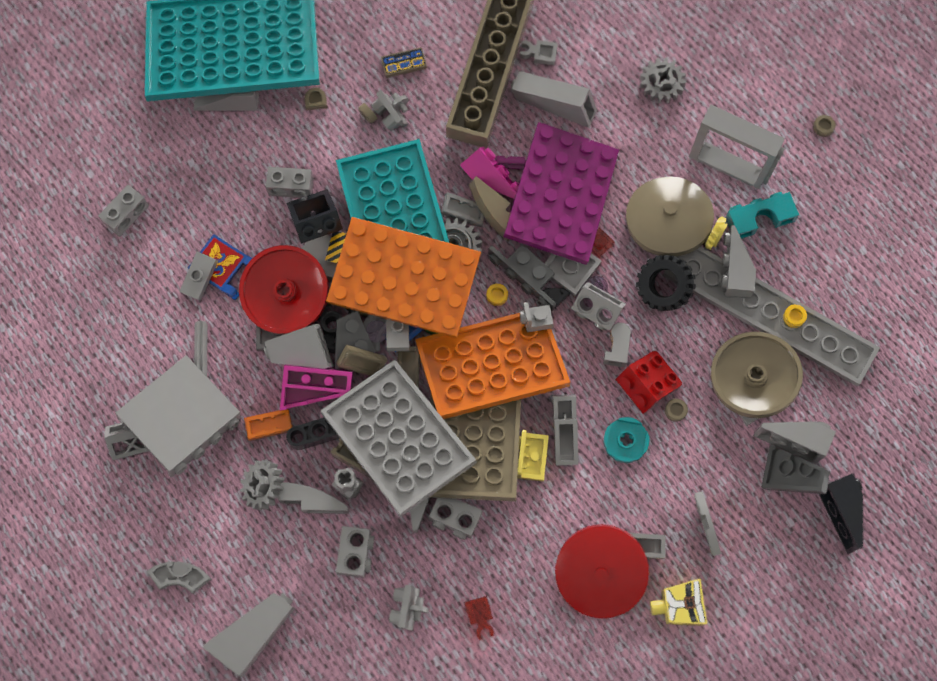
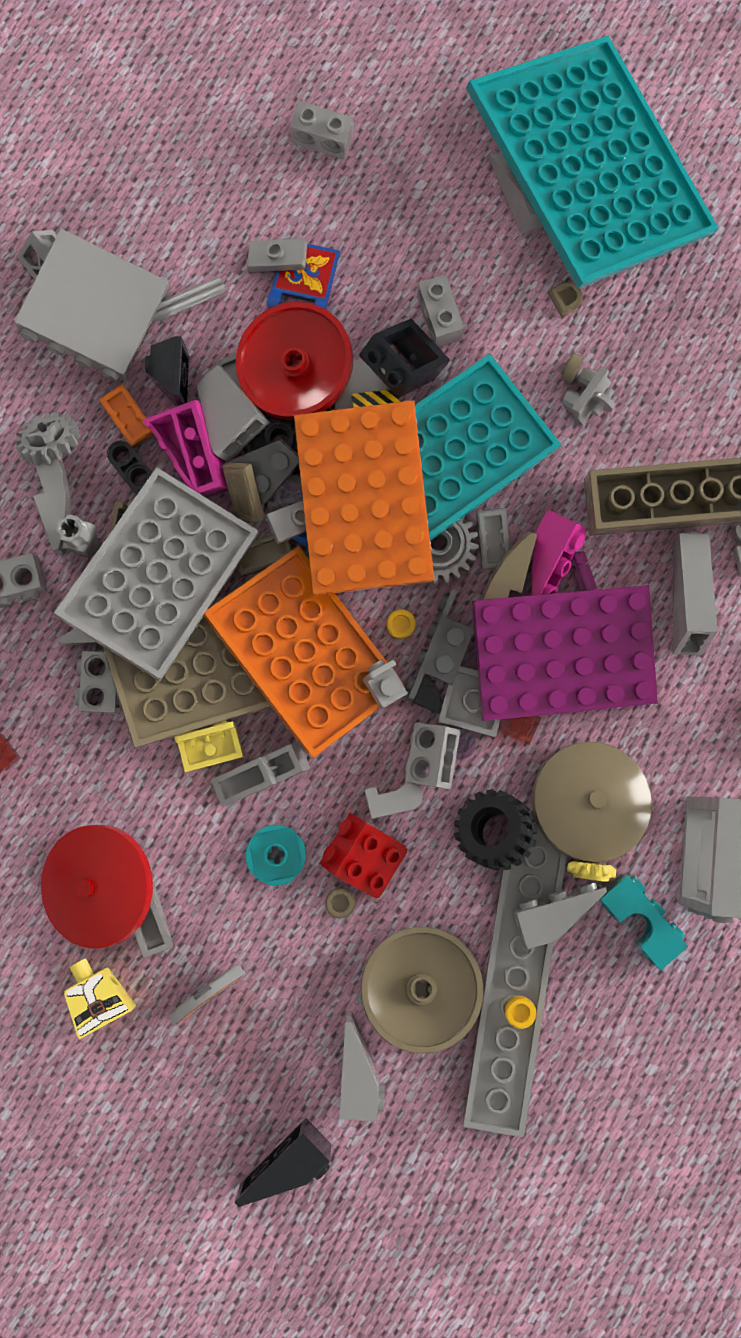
camera: 65 degrees right, 10 degrees up
(251, 379) = (170, 368): none -> black slope
(404, 62) = (662, 385): tile -> none
(793, 474) = (308, 1082): dark grey wing -> none

